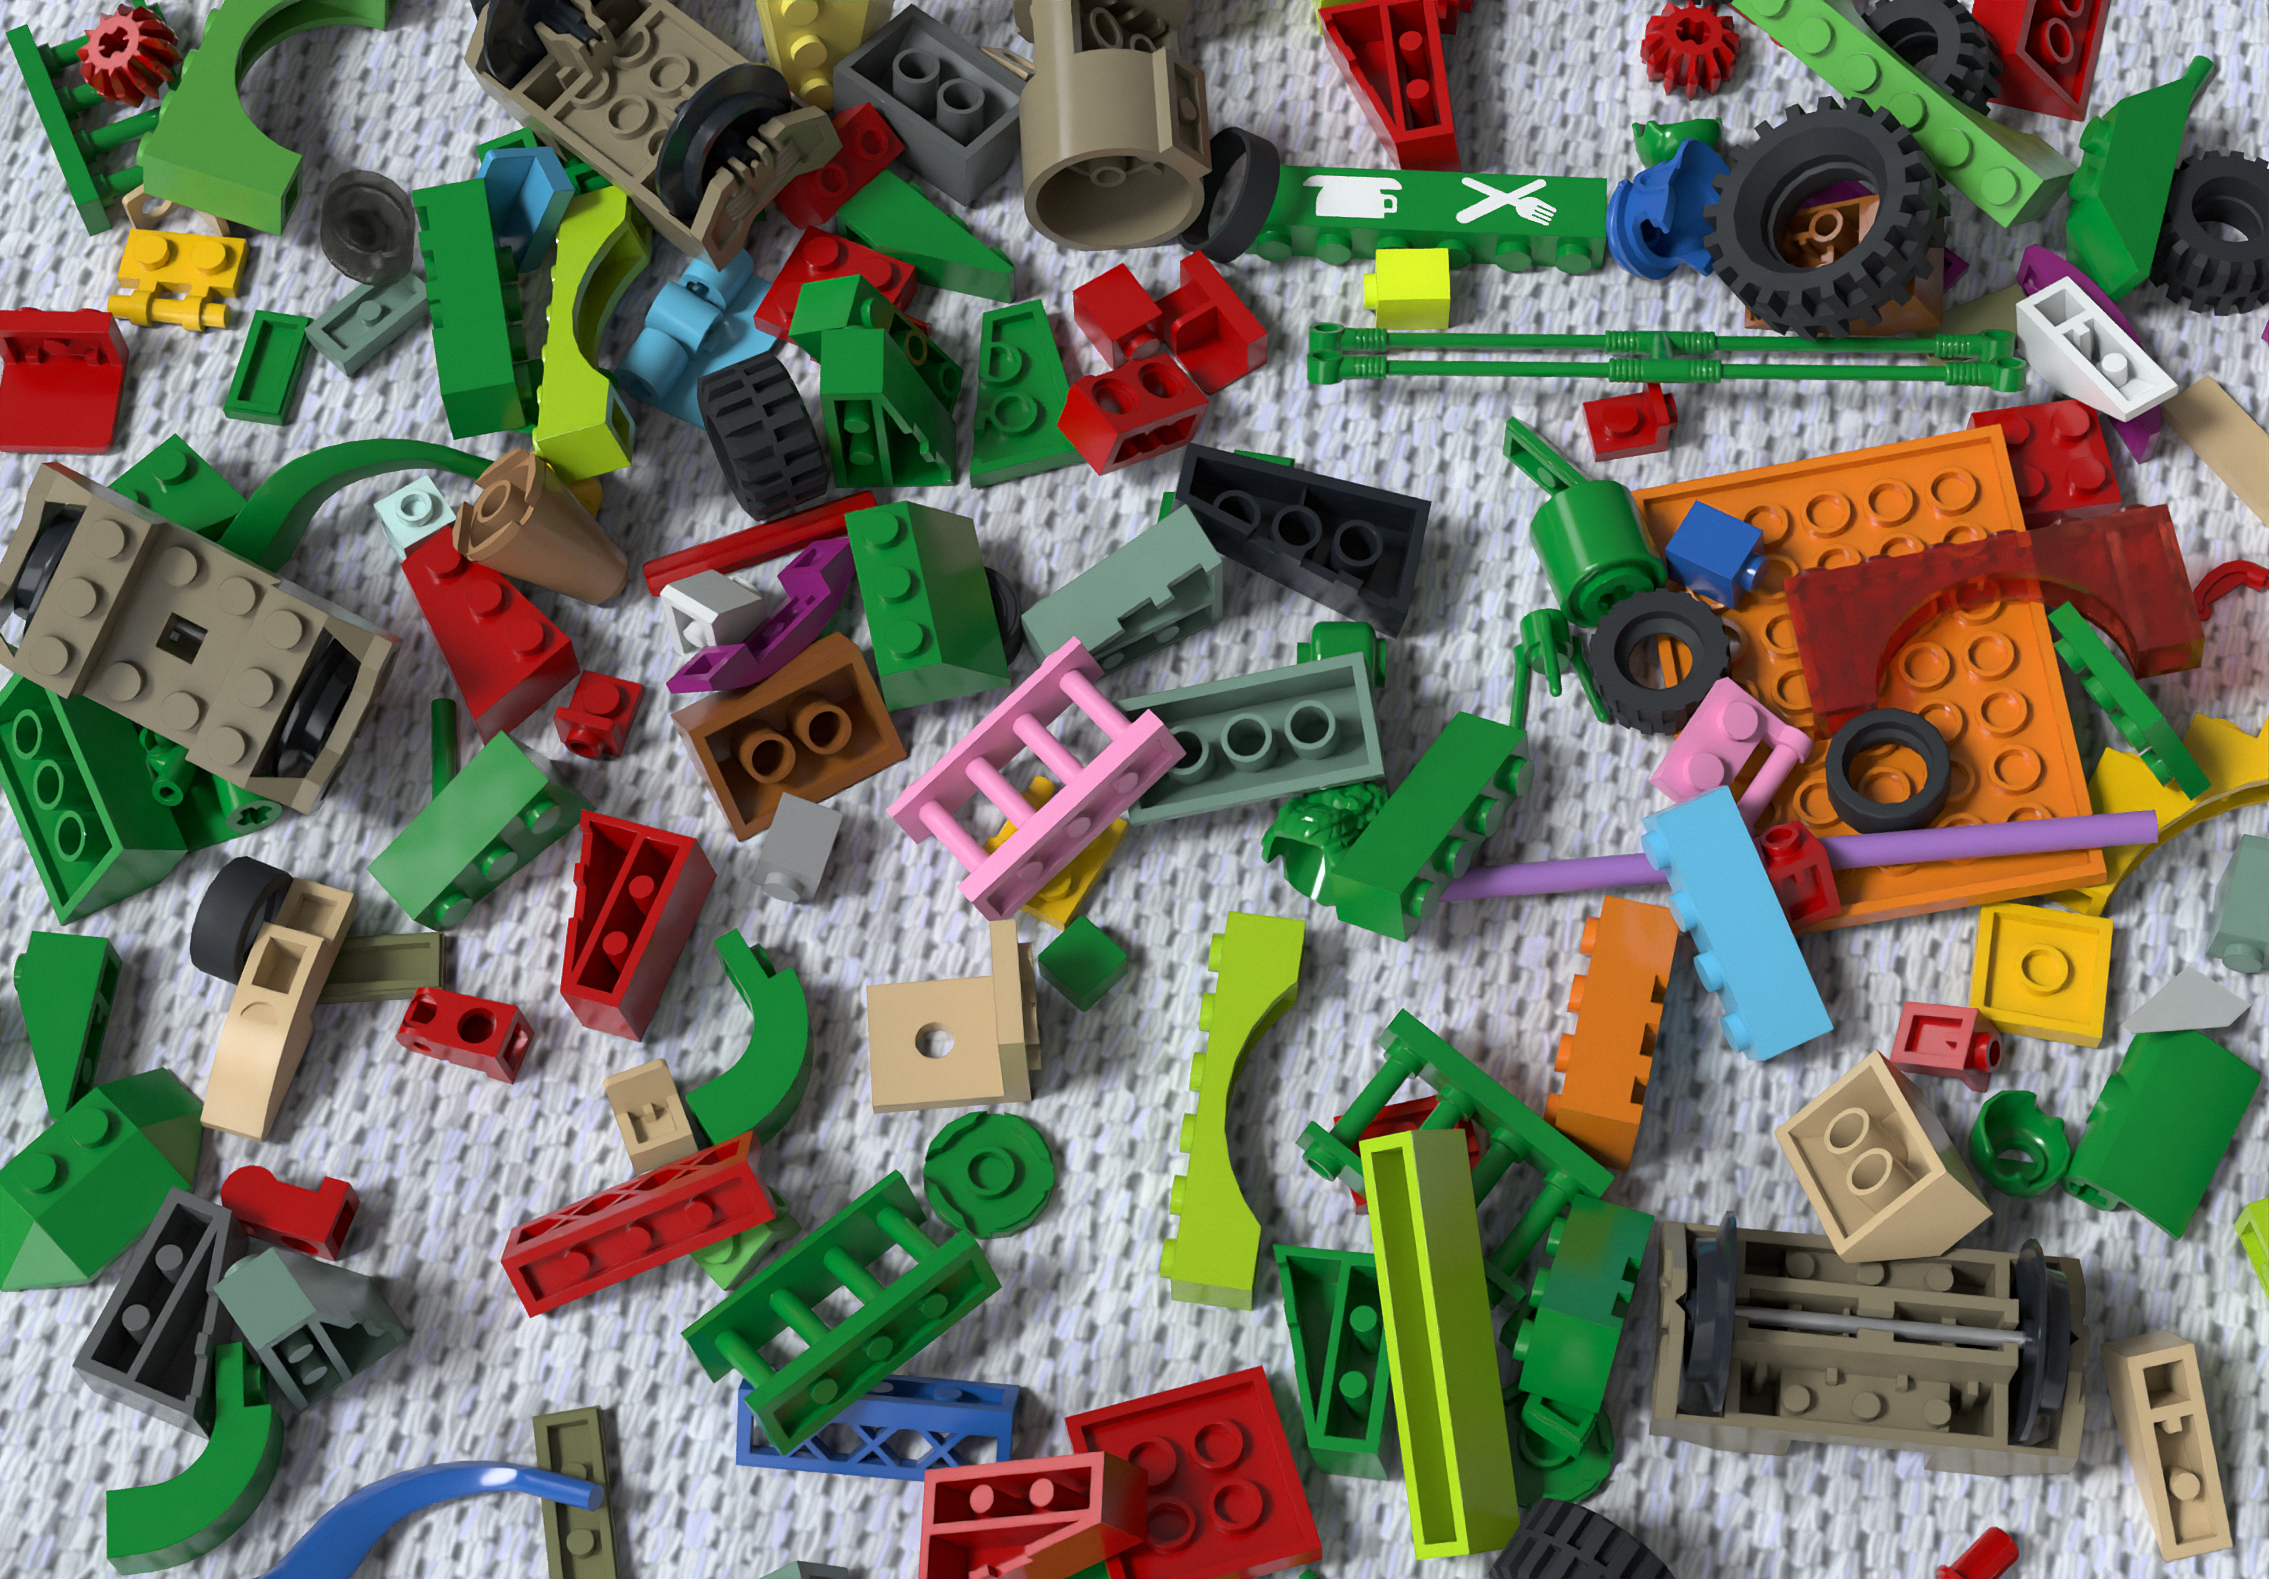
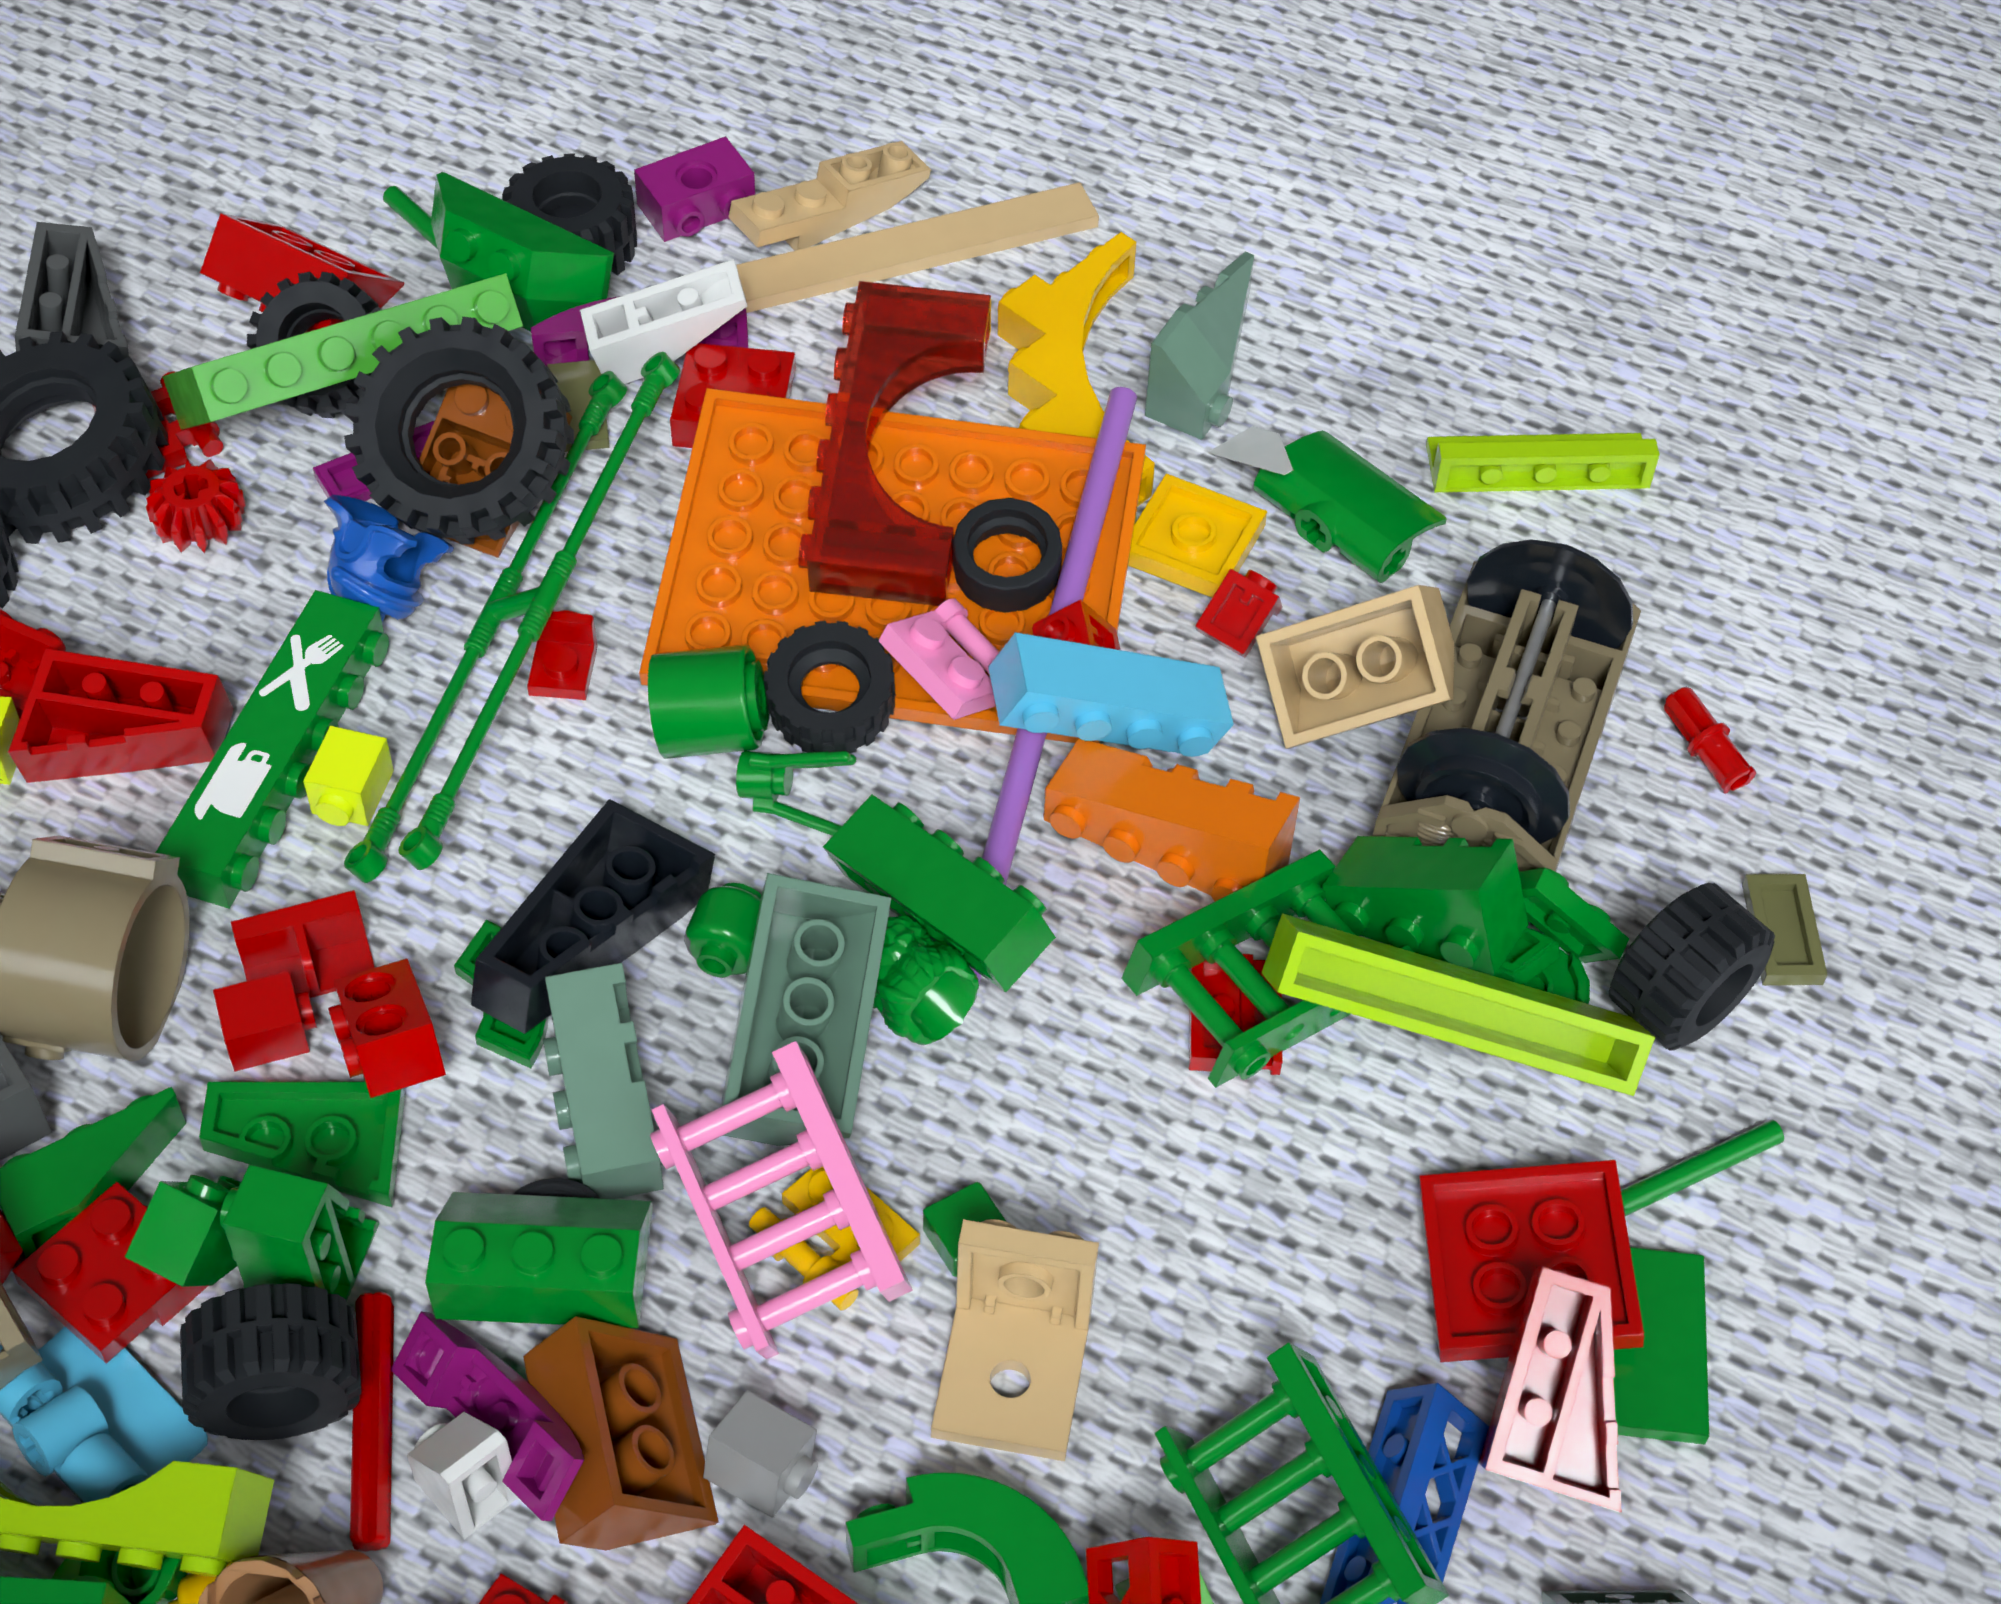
camera: 80 degrees left, 10 degrees down
(990, 1197) = (1159, 1388): green tile -> none
(1217, 1233) = (1275, 1179): lime arch -> none
(1252, 204) = (227, 852): black tyre -> none
(1340, 1358) = (1431, 1100): green wedge -> none
(1541, 458) = (591, 724): green slope -> none
(1624, 1419) = (1569, 918): none -> green plate
(1661, 141) = (297, 542): green hair -> none
(1717, 555) = (748, 610): blue brick -> none
(2017, 1123) = (1343, 583): green hair -> none
(2136, 715) = (1002, 382): green plate -> none
(2168, 1440) = (1651, 578): tan slope -> none

